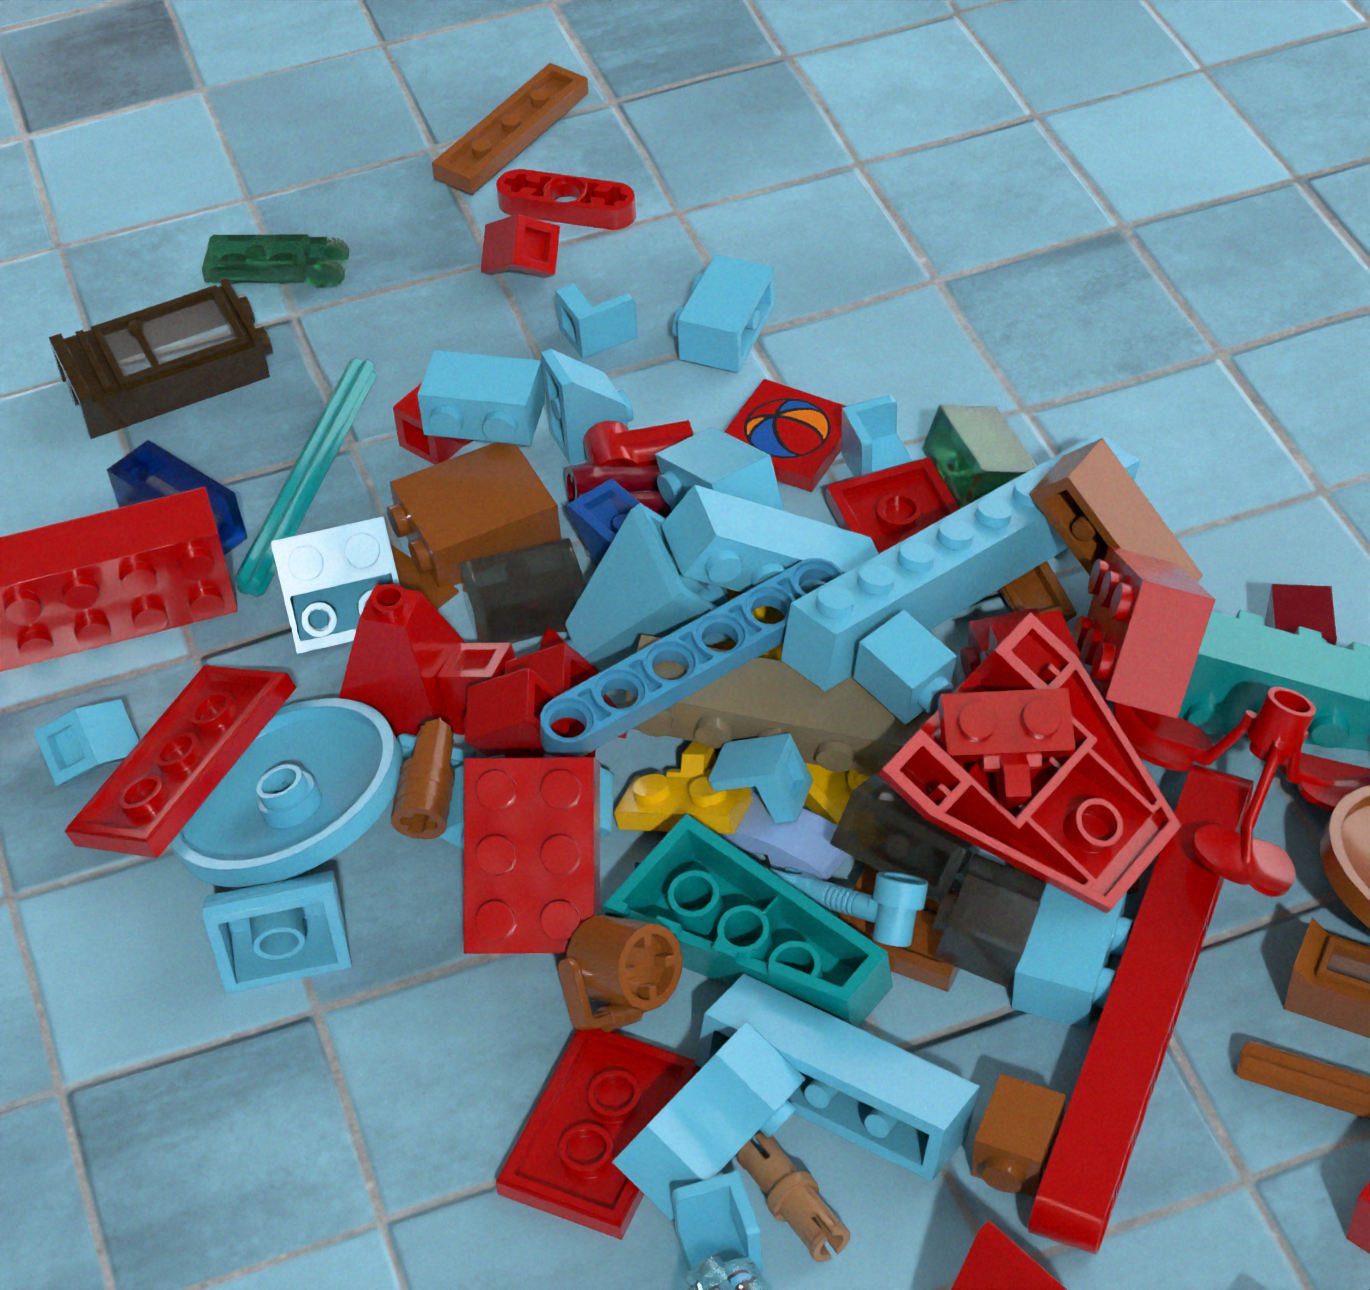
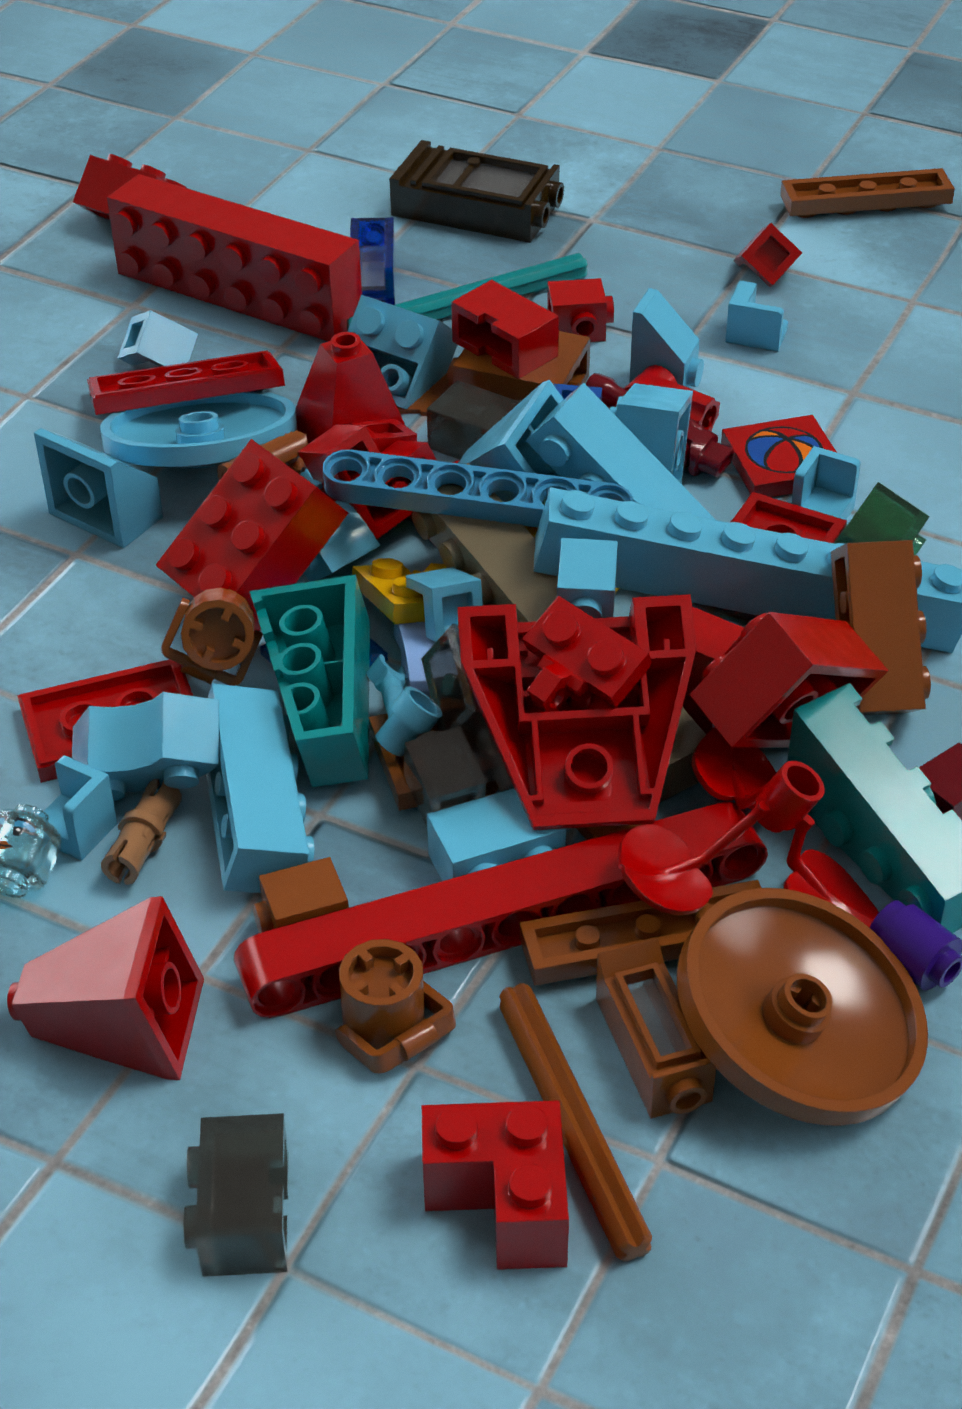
camera: 45 degrees right, 5 degrees down
(275, 259) = (617, 182): clear green hinge -> none
(450, 481) = (505, 327): none -> red brick
(481, 397) = (589, 298): medium azure brick -> none
(535, 194) = (844, 250): red beam -> none
(725, 313) = (837, 360): medium azure brick -> none
(1181, 1153) = (385, 1005): none -> dark orange piece
(1255, 936) = (570, 943): none -> dark orange plate

